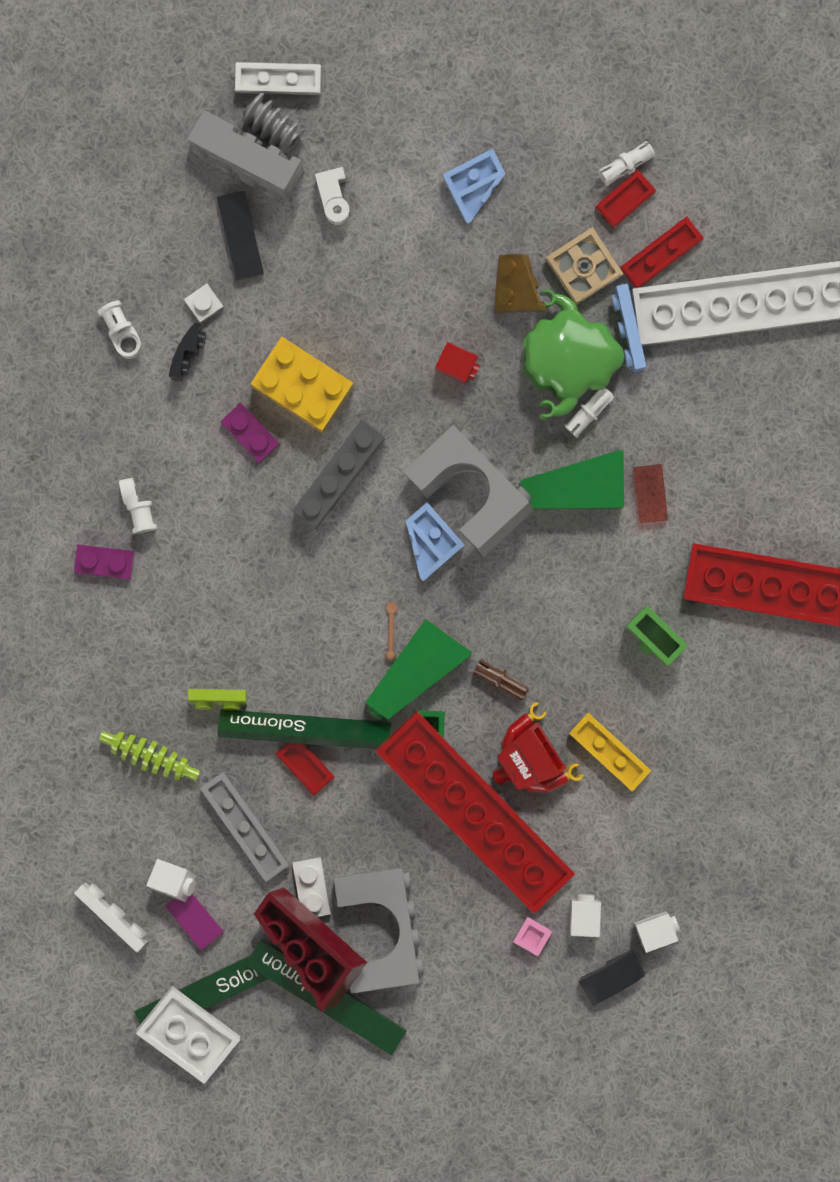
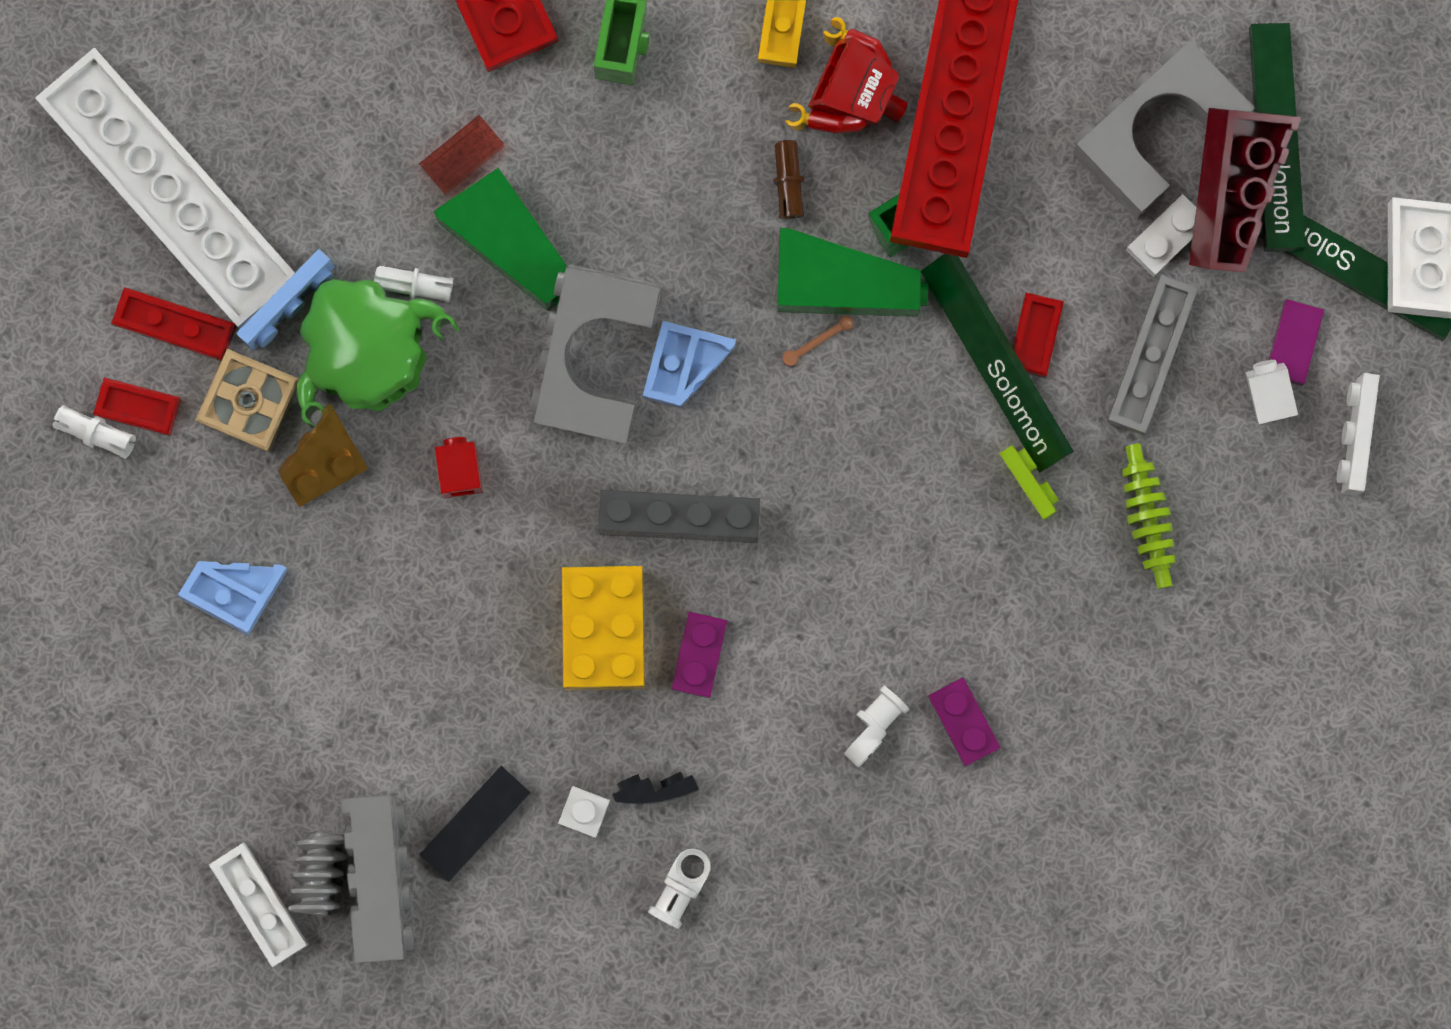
camera: 125 degrees left, 5 degrees down
(335, 207) = (358, 746): white leg -> none

